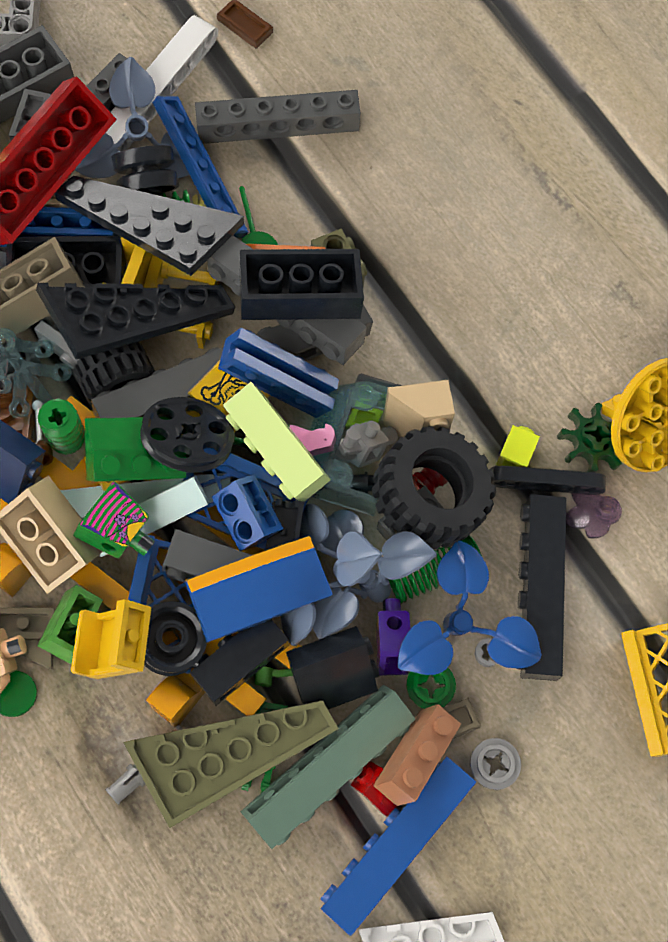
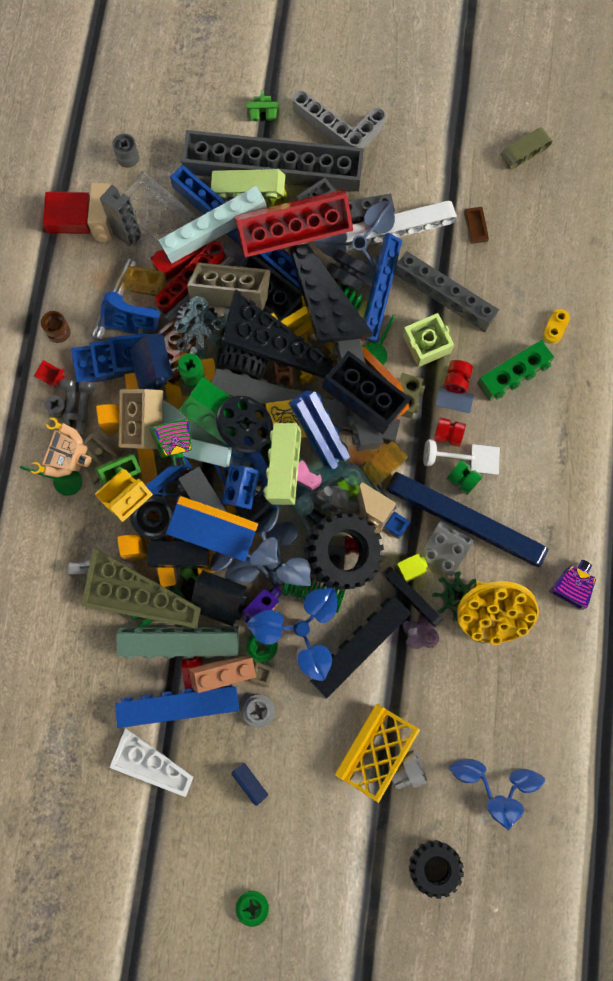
camera: 45 degrees right, 5 degrees up
(172, 349) = (284, 374): none -> nougat beam
(307, 183) = (428, 340): none -> yellowish green brick
(374, 196) = (458, 373): none -> red wheel
(382, 355) = (384, 463): none -> clear yellow brick
(392, 229) = (454, 401): none -> sand blue sticker
(418, 267) = (449, 432): none -> red wheel
(429, 64) = (557, 325): none -> yellow plate
(439, 108) = (538, 353): none -> green brick
(462, 419) = (396, 525): none -> blue tile
(481, 266) = (483, 458): none -> white piece
(484, 301) = (464, 477): none -> green wheel
(527, 346) = (467, 519): none -> dark blue beam
(535, 395) = (446, 548): none -> light grey bracket
(563, 859) = (249, 784): none -> dark blue slope

